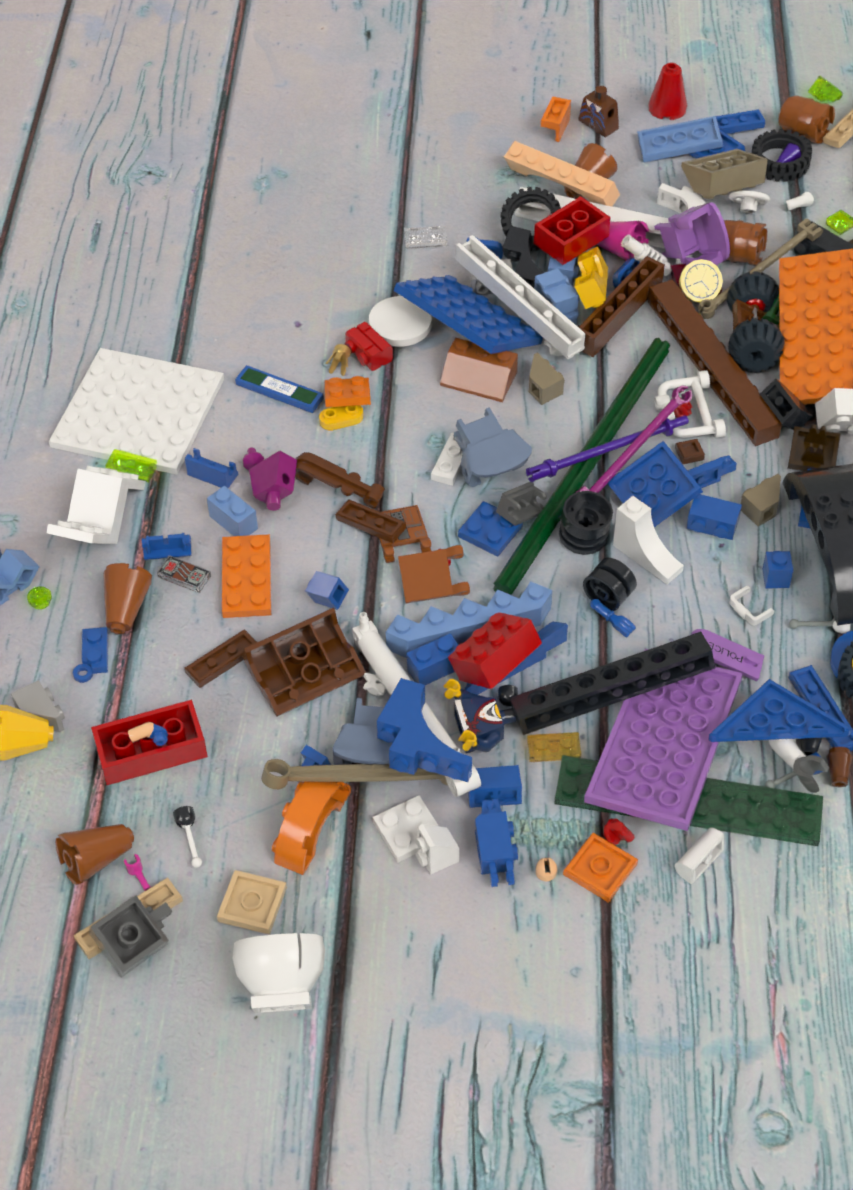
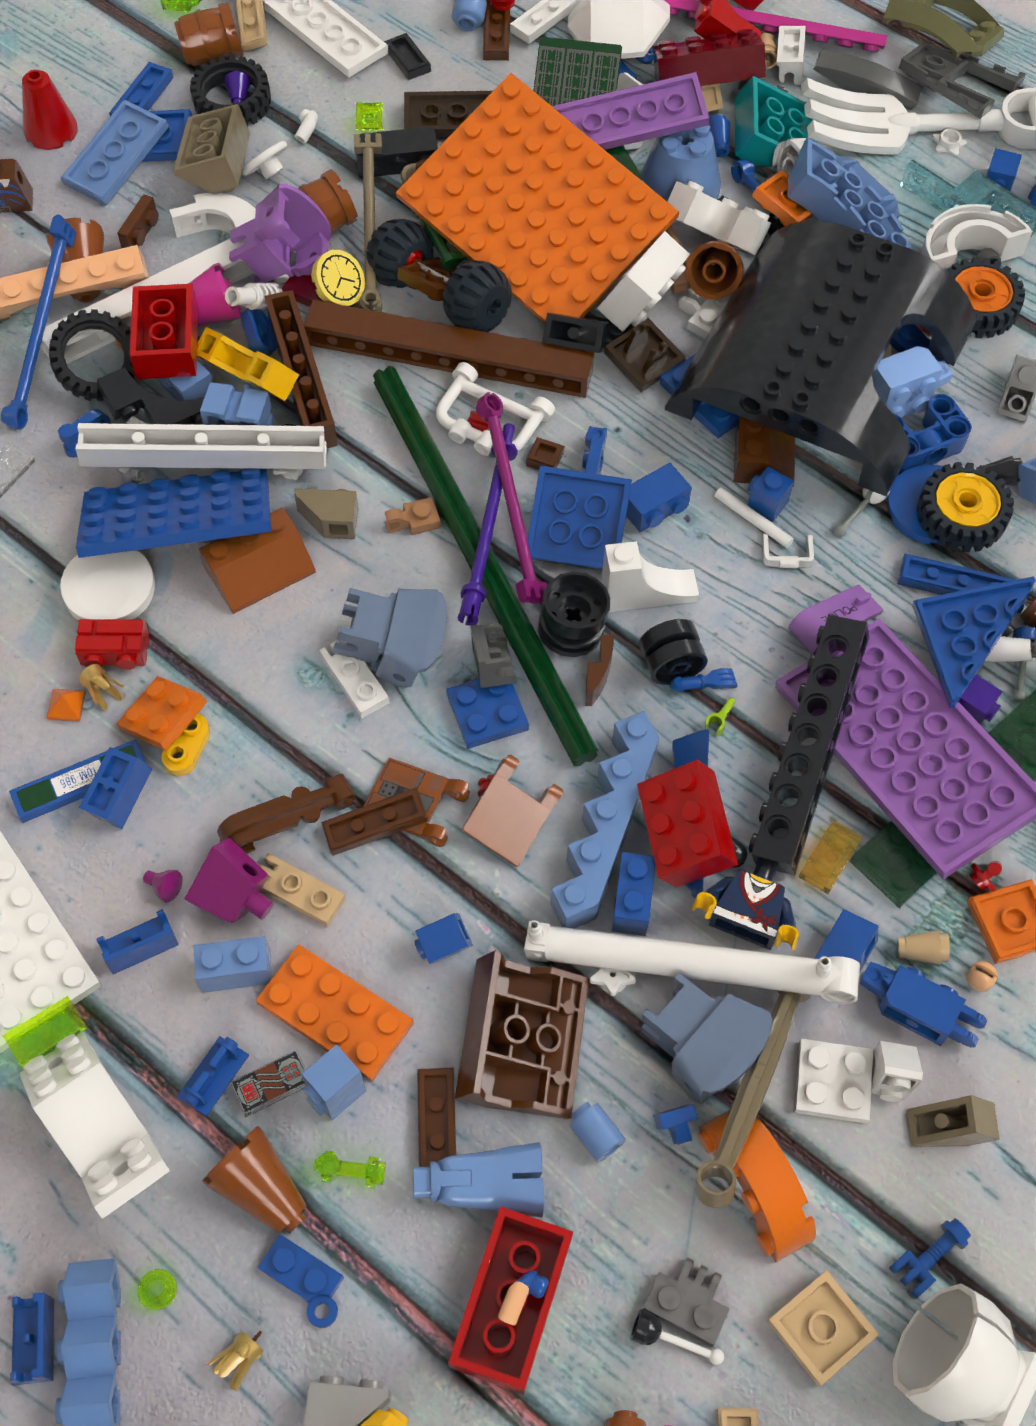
camera: 55 degrees left, 10 degrees up
(30, 650) = (242, 1350): none -> pearl gold piece
(158, 626) = (331, 1168): none -> clear neon green bar
(201, 591) = (333, 1083): none -> medium blue brick
(212, 700) = (486, 1180): none -> medium blue piece
(217, 831) = (688, 1303): none -> flat silver hinge
(276, 729) = (596, 1131): none -> medium blue brick
(285, 402) = (115, 787): none -> blue hinge
(302, 518) = (301, 891): none -> tan hinge
(317, 355) = (66, 705): none -> orange slope
(326, 929) = (954, 1234): none -> blue hinge
(412, 739) = (781, 997): blue arch -> none
(433, 901) = (953, 1123): none -> dark tan slope
(536, 826) = (925, 947): none -> tan cone
(562, 563) = (598, 672): none -> reddish brown slope
(583, 148) = (16, 413): none -> blue hinge
(583, 420) = (416, 515): none -> medium nougat plate
(588, 639) = (720, 716): none -> lime hand
(641, 180) = (138, 223): none -> reddish brown plate
(736, 759) = (981, 700): none -> dark purple brick
(756, 575) = (754, 517): none -> white bar
(762, 501) = (671, 440): dark tan slope -> none
(804, 551) = (761, 447): none -> reddish brown slope

